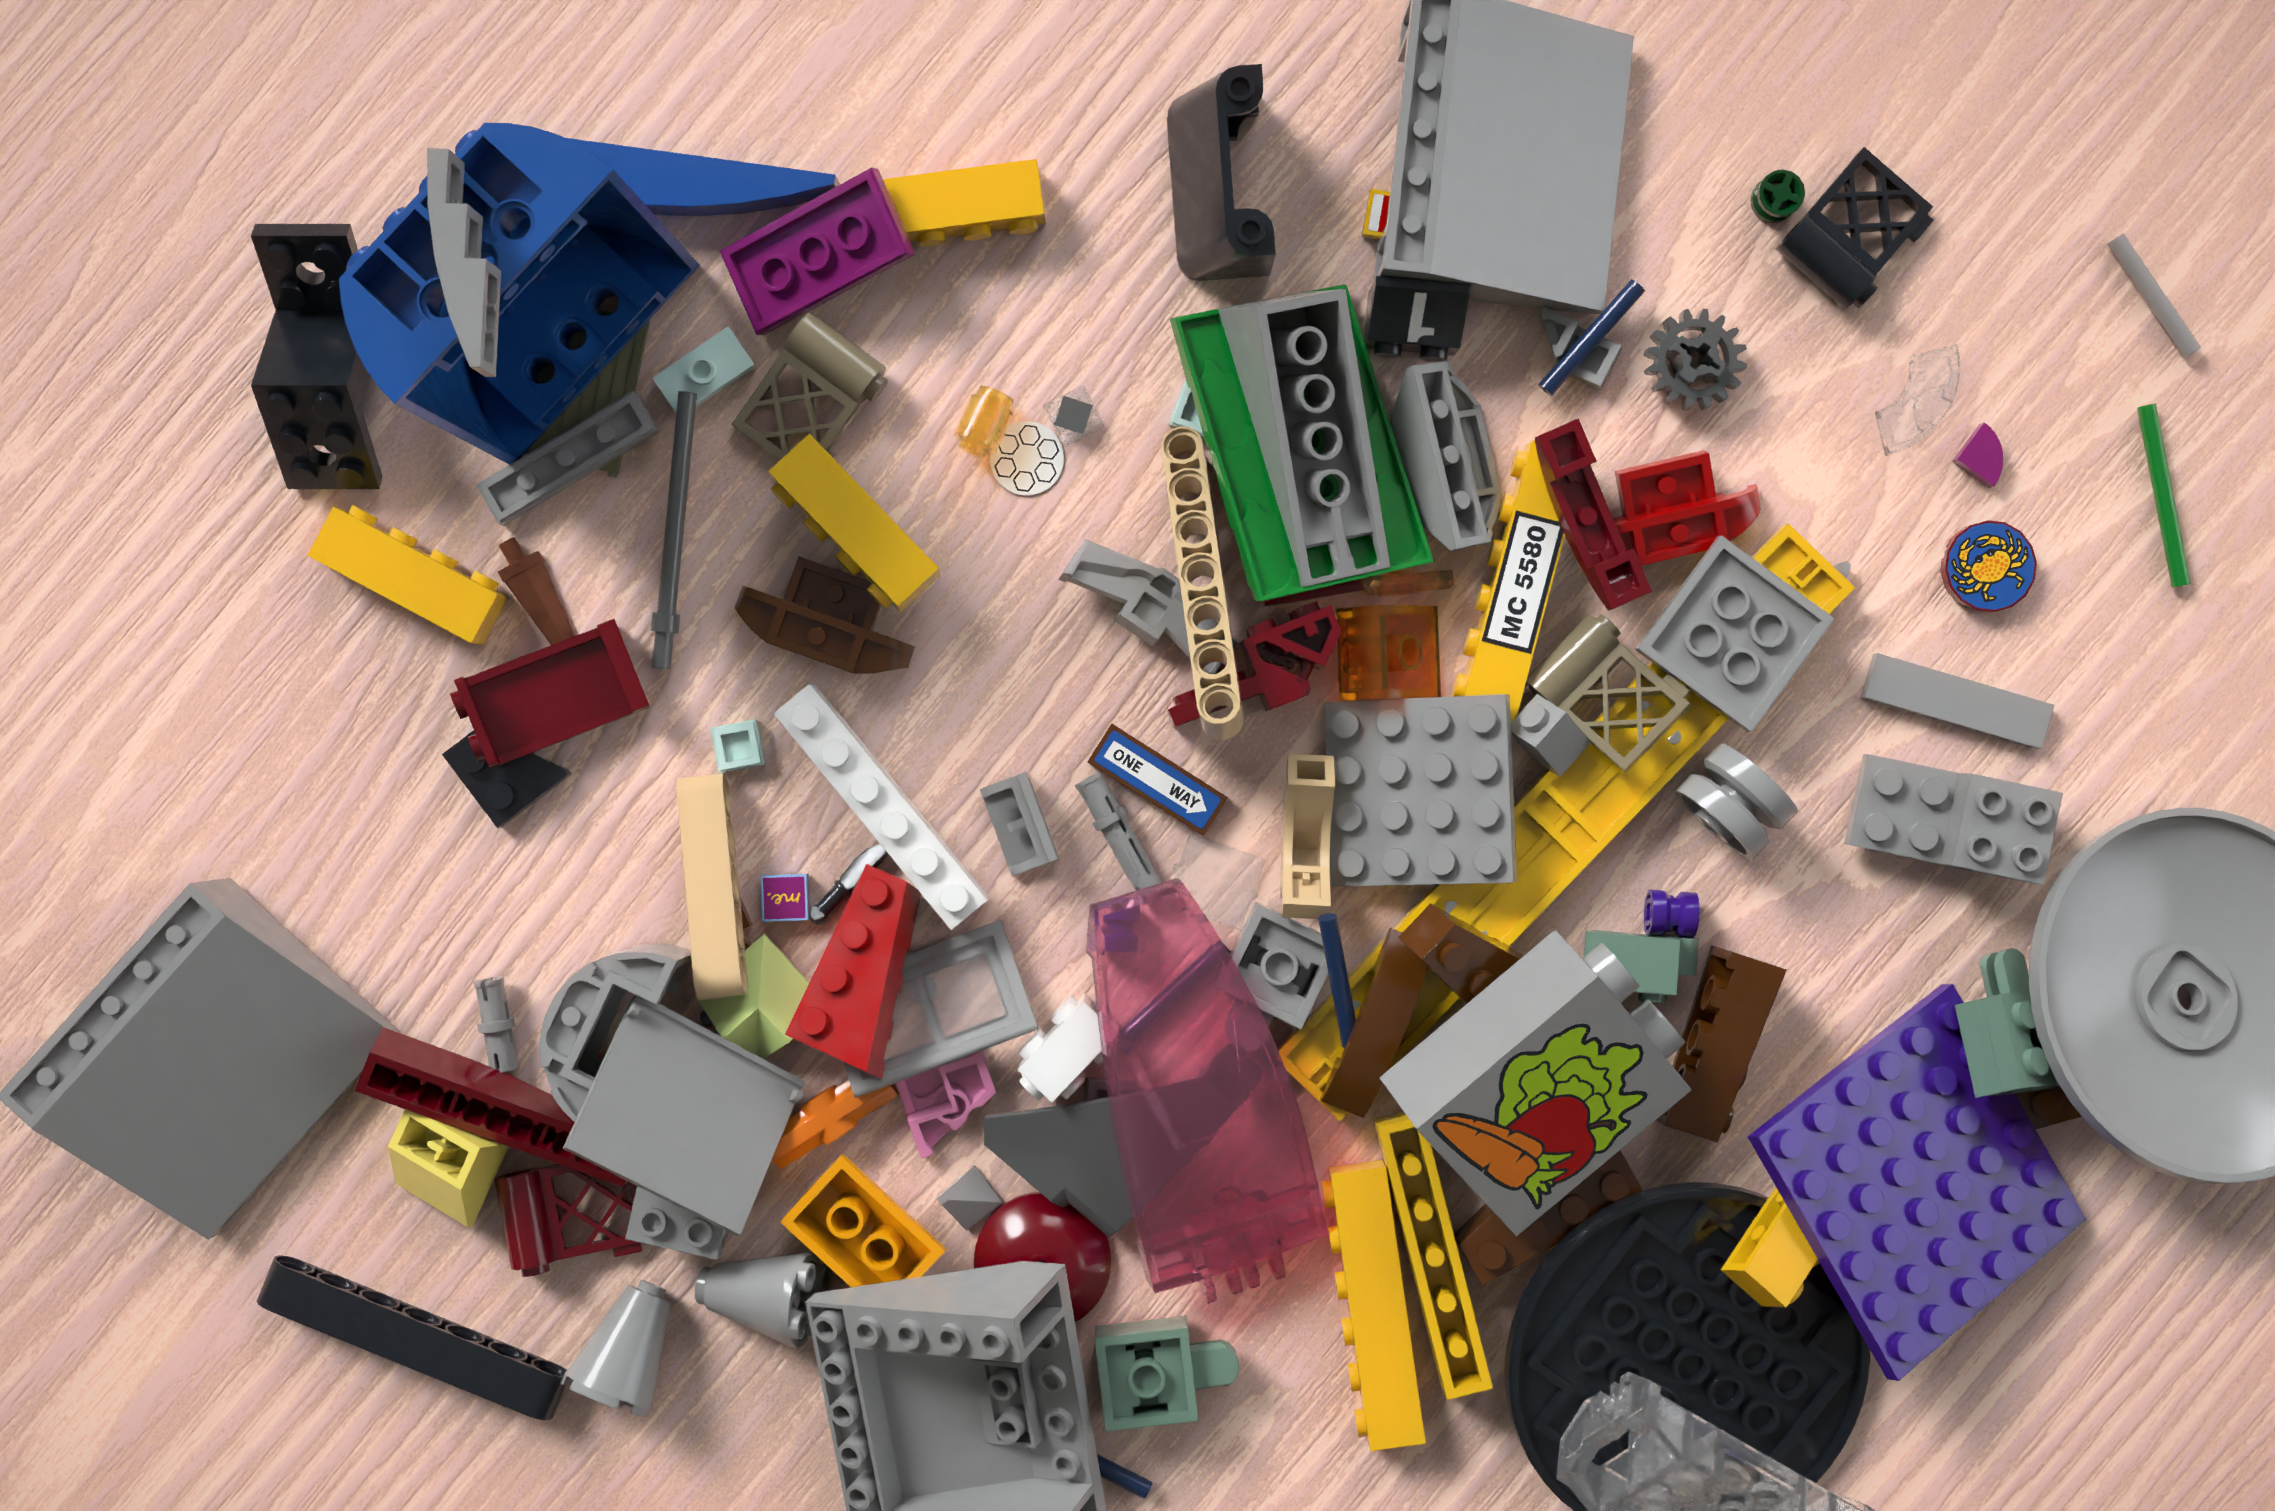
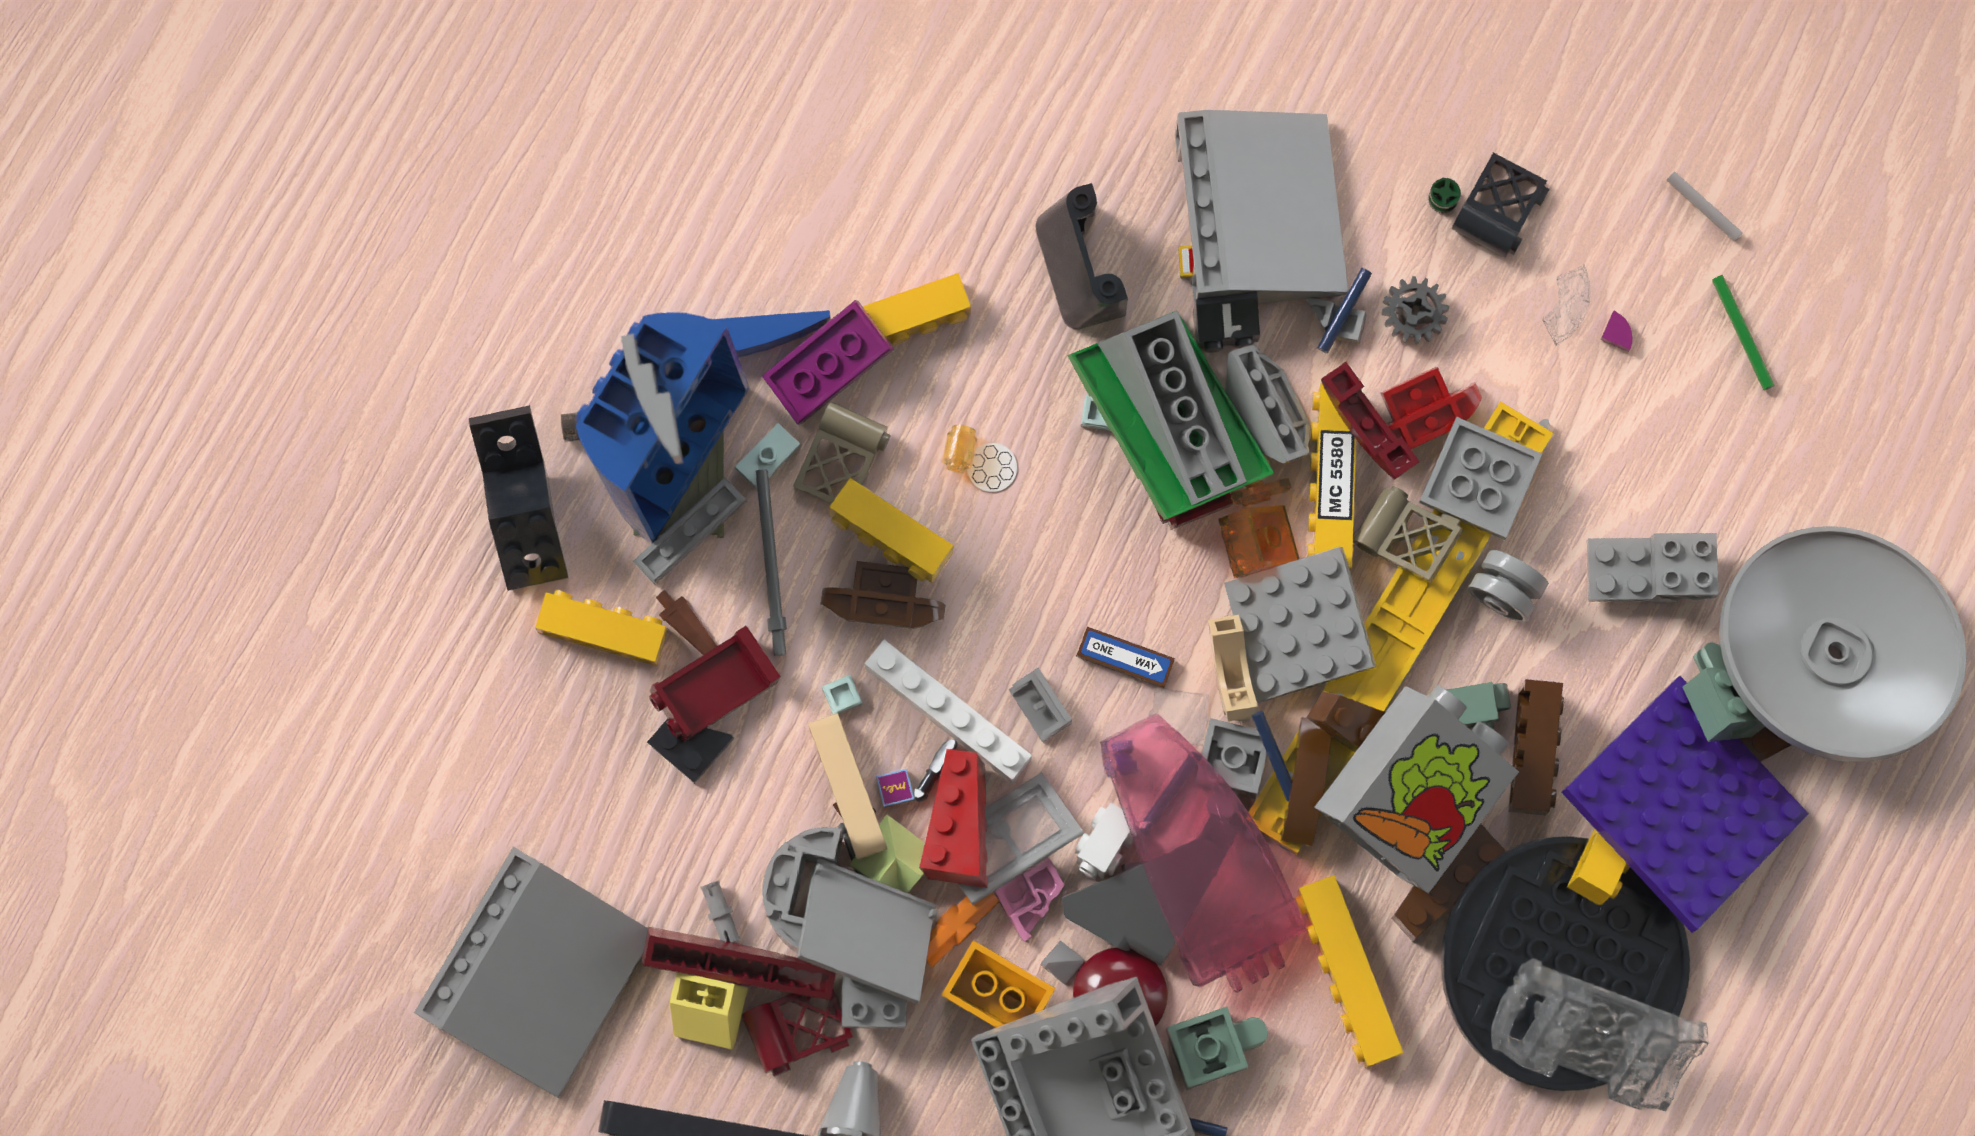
camera: 10 degrees left, 10 degrees down
(765, 1293) = (940, 1051): light grey cone -> none
(1073, 416) = (1017, 433): tile -> none
(1116, 829) = (1105, 694): light grey pin -> none
(1148, 593) = (1096, 542): light grey plate -> none
(1205, 601) = (1131, 528): tan beam -> none
(1306, 638) = (1183, 570): dark red piece -> none
(1433, 1257) = (1379, 926): yellow brick -> none
(1548, 735) = (1375, 569): light grey brick -> none
(1666, 913) = (1485, 670): dark purple wheel -> none
(1957, 701) = (1640, 493): light grey tile -> none
(1988, 566) = (1639, 402): tile -> none

